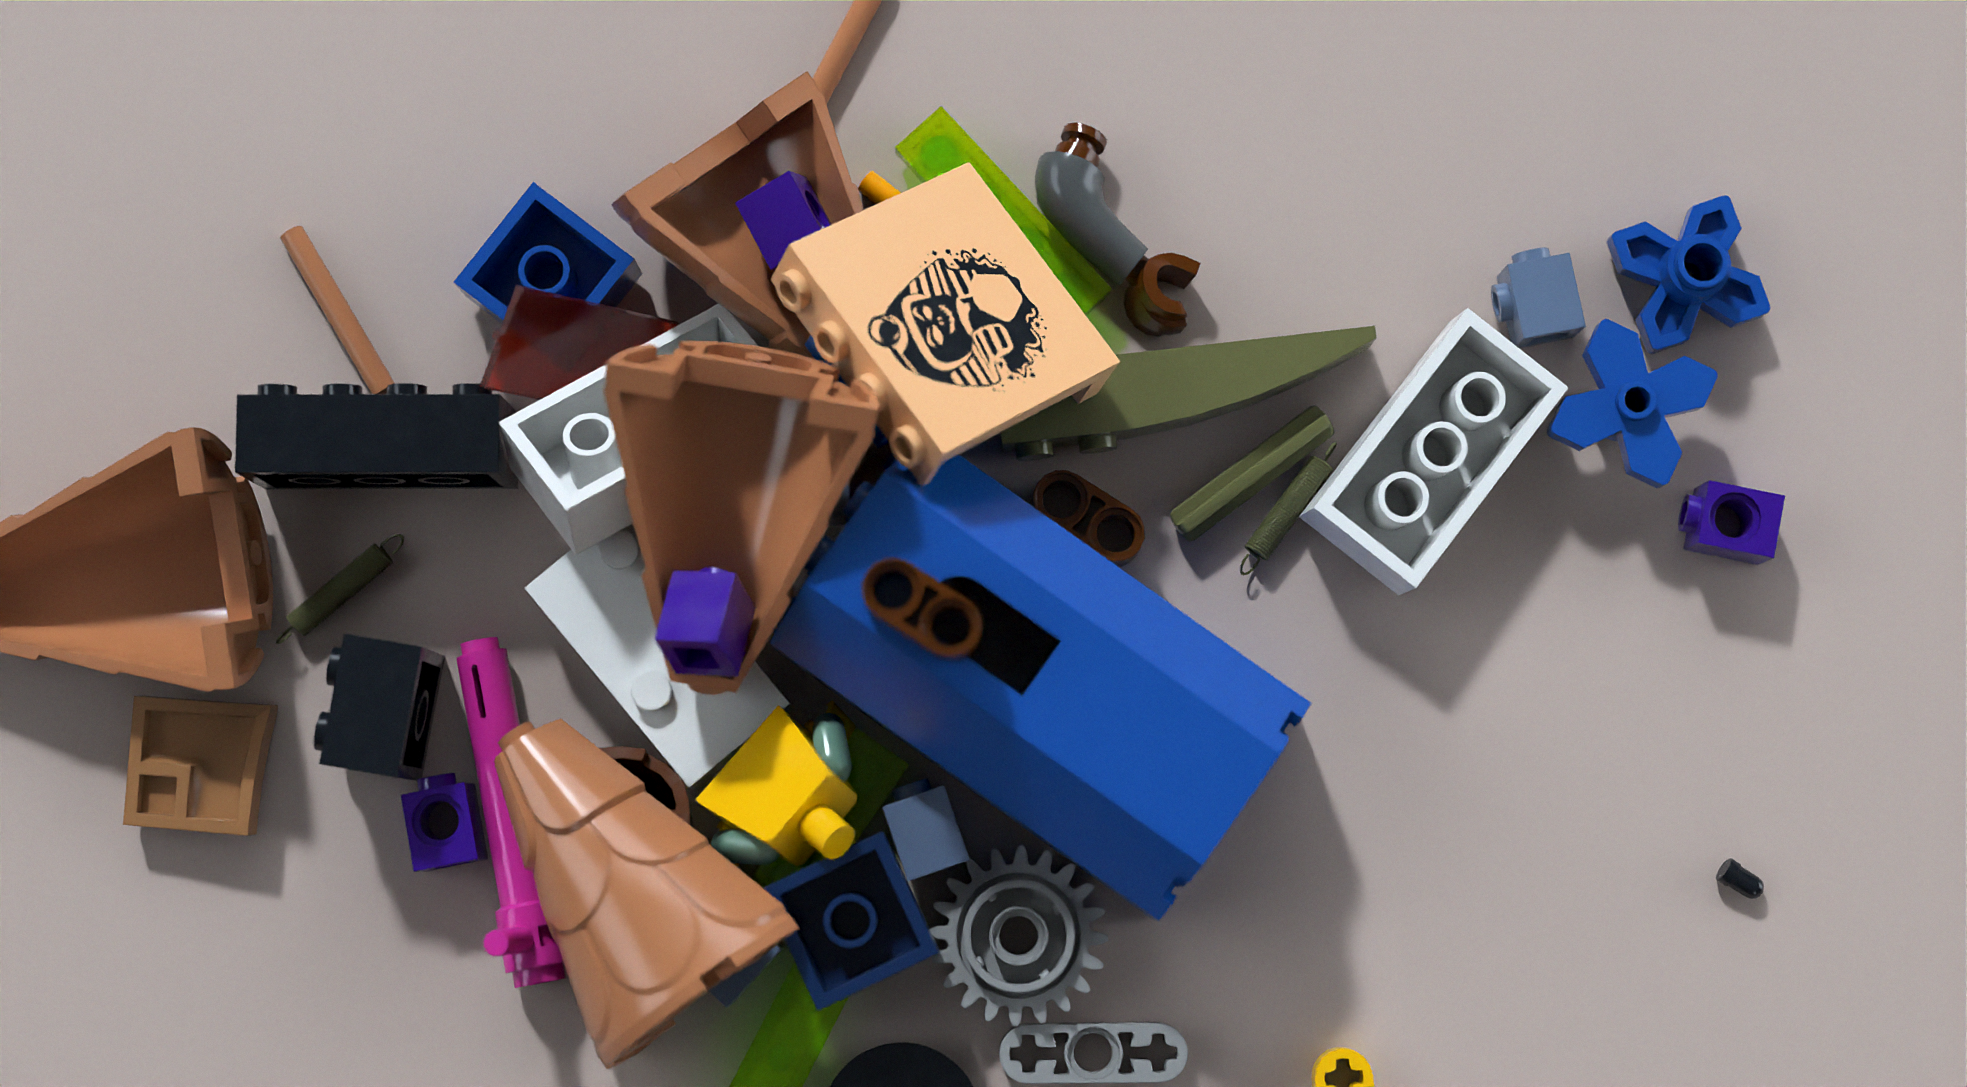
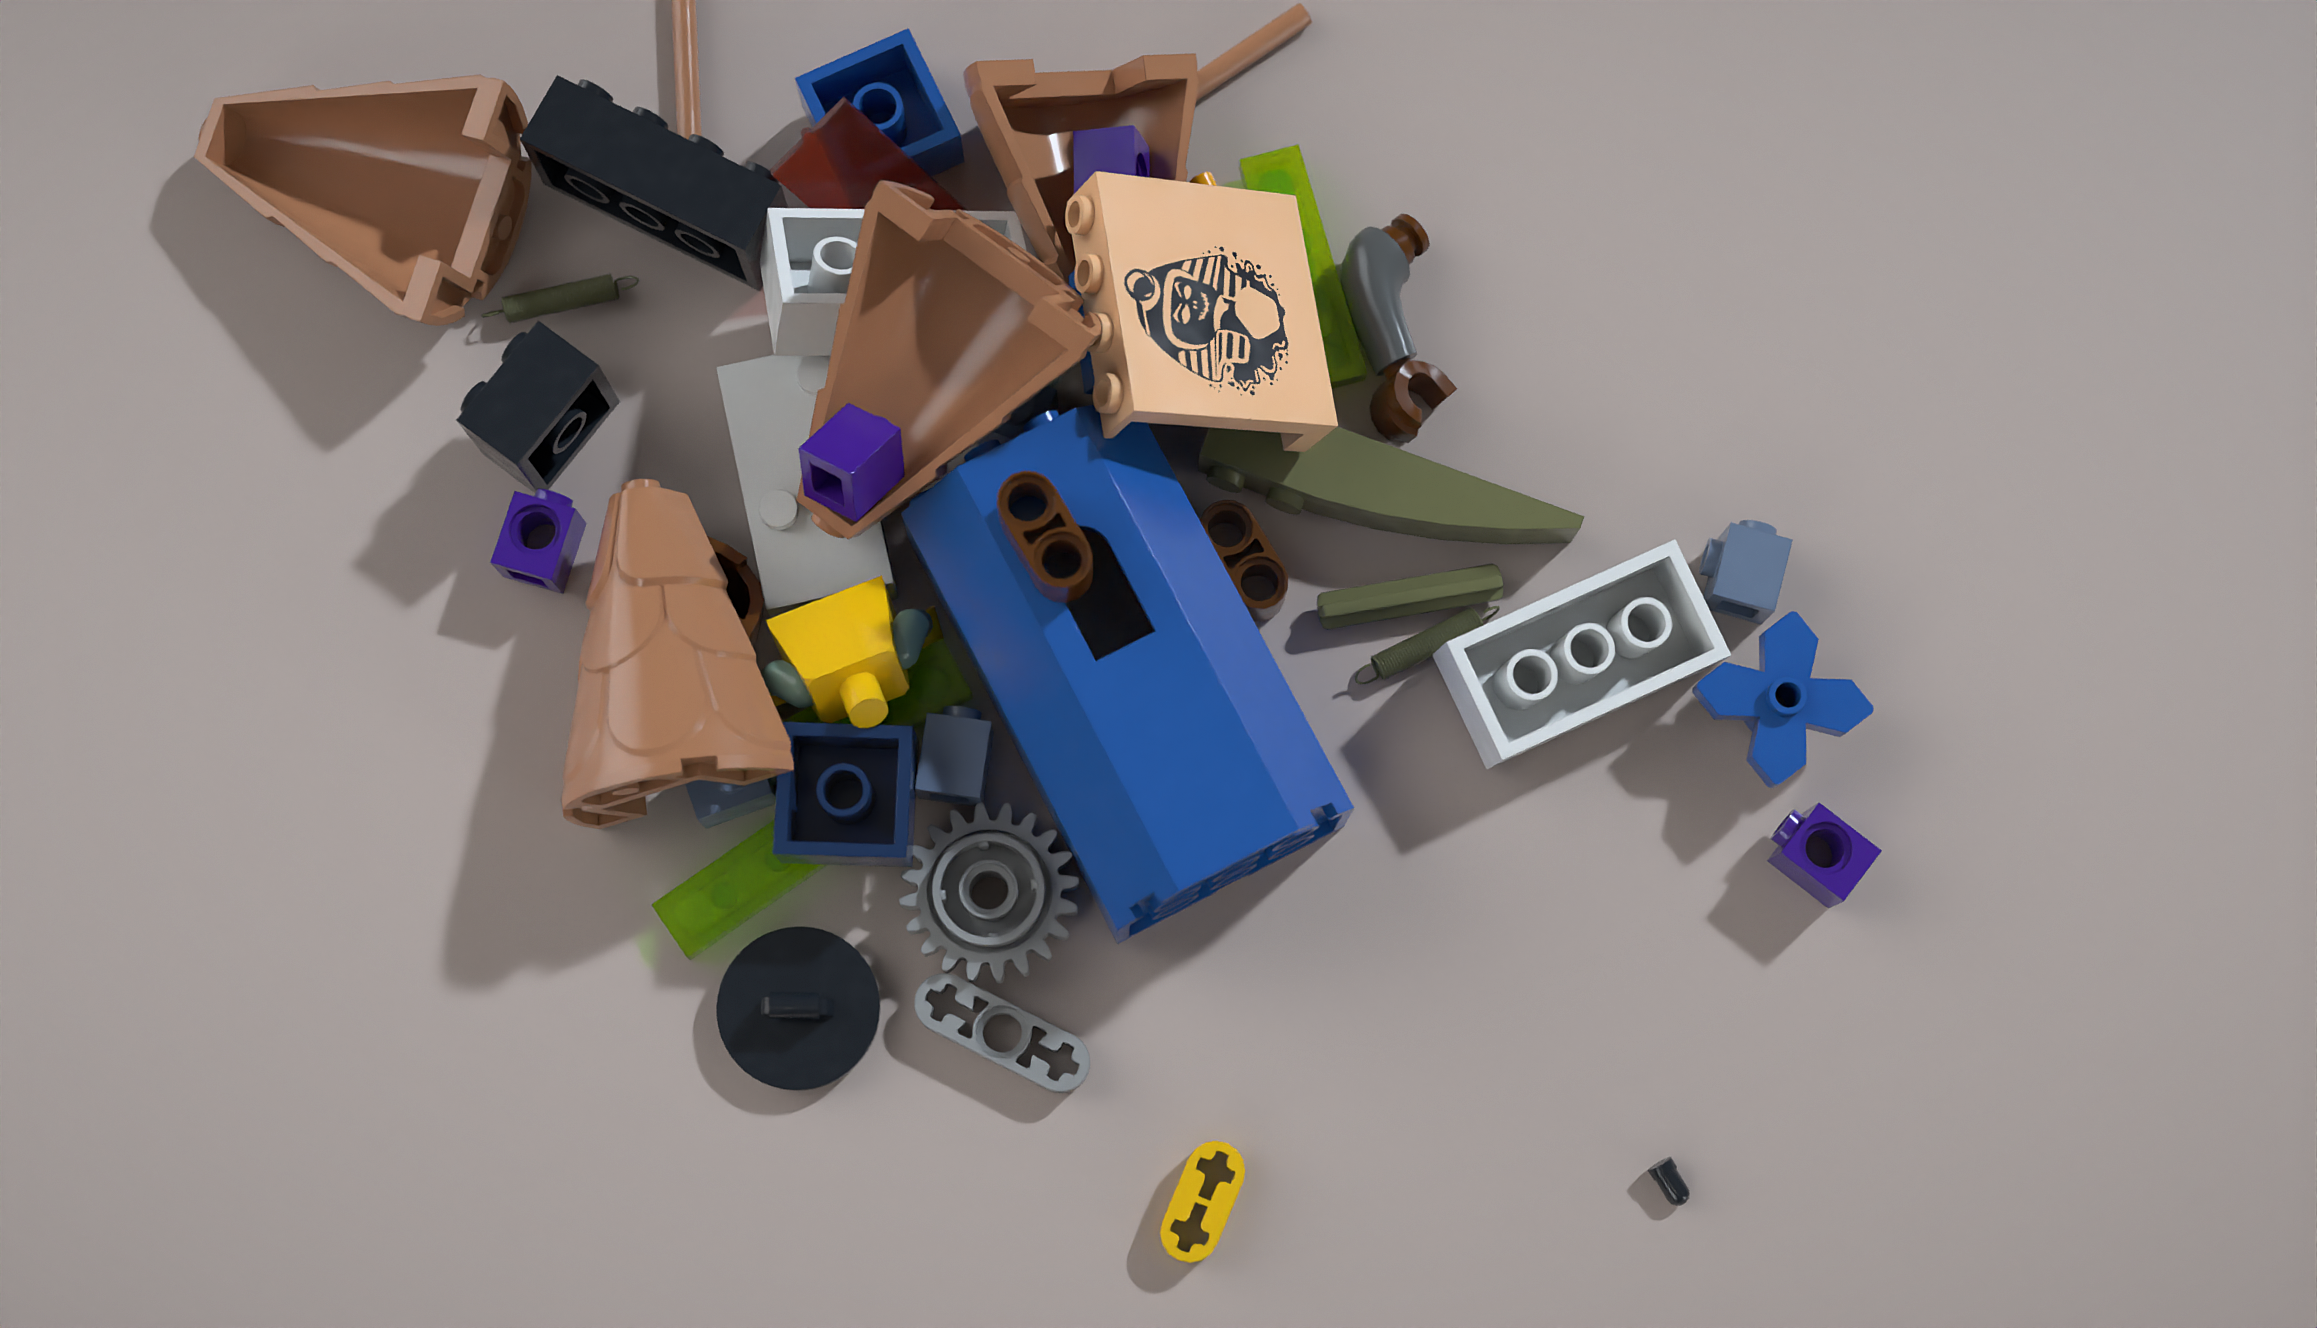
camera: 25 degrees right, 5 degrees down
(197, 764) = (357, 382): medium nougat plate -> none
(491, 714) = (556, 659): dark pink cylinder -> none
(1703, 248) = (1909, 637): blue plant -> none

